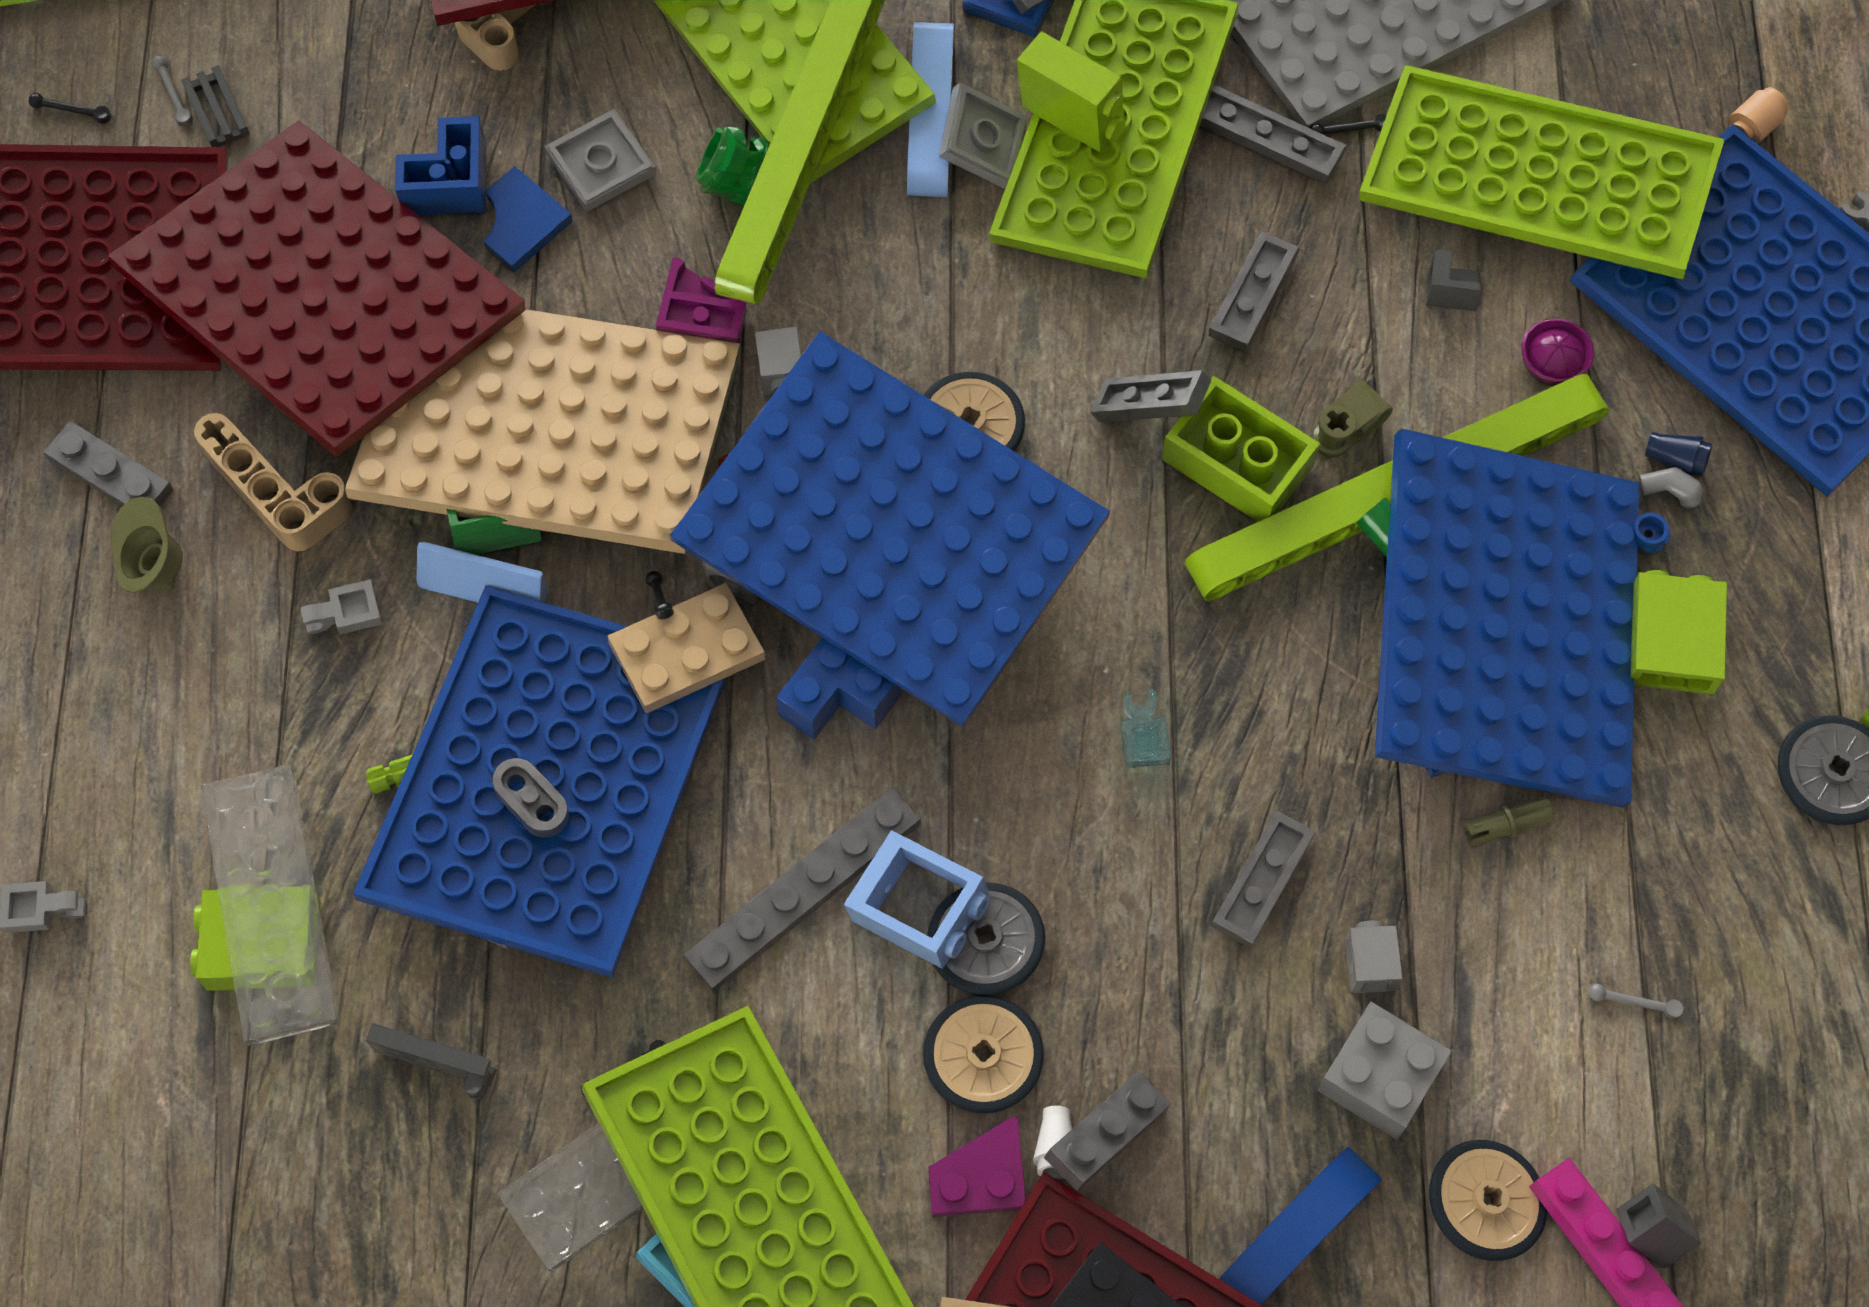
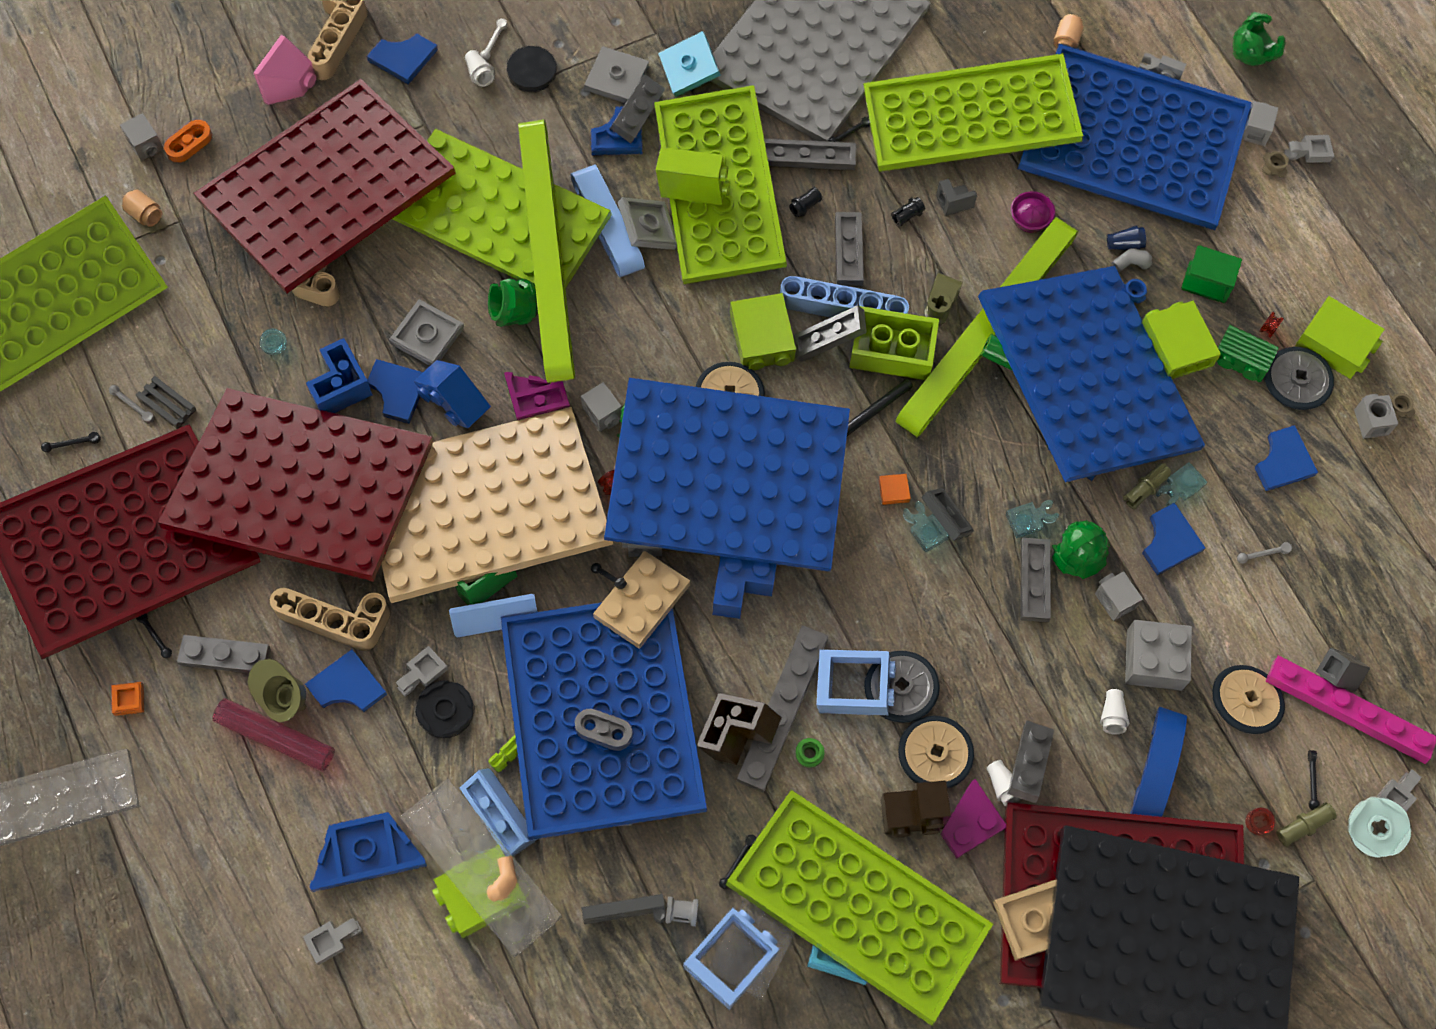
camera: 30 degrees left, 0 degrees up
(37, 434) = (165, 652): none -> black hinge
(111, 604) = (273, 734): none -> clear pink piece
(140, 812) = (364, 851): none -> blue wing
(242, 578) = (346, 682): none -> blue tile
(281, 937) = (506, 881): none -> light nougat arm
(341, 842) = (497, 810): none -> light blue slope
(349, 675) = (444, 709): none -> black tile
(394, 85) = (273, 341): none -> clear light blue plate
(489, 1164) = (706, 978): none -> light blue window
(508, 1097) = (682, 911): none -> light grey bush
(585, 247) = (454, 391): none -> blue brick
(713, 876) = (733, 723): none -> dark brown brick
(802, 955) = (813, 744): none -> bright green plate
(904, 1117) = (915, 810): none -> dark brown brick
(1062, 354) = (762, 331): none -> lime brick
(1130, 658) = (894, 489): none -> orange tile
(1161, 534) = (879, 405): none -> black bar
(1186, 727) = (947, 514): none -> dark grey tile
(1191, 347) = (832, 295): none -> light blue beam
(1228, 199) = (801, 205): none -> black pin
(1272, 1124) = (1114, 714): none -> white cone
(1300, 788) = (1028, 519): none -> clear light blue plate
(1355, 868) = (1082, 549): none -> green helmet
(1370, 274) = (908, 211): none -> black pin
(1504, 919) = (1172, 541): none -> blue tile
(1568, 842) = (1184, 483): none -> clear light blue plate
(1747, 883) = (1286, 461): none -> blue tile
(1768, 696) = (1246, 353): none -> green brick
(1780, 557) = (1211, 274): none -> green piece
(1835, 672) = (1271, 324): none -> clear red bush

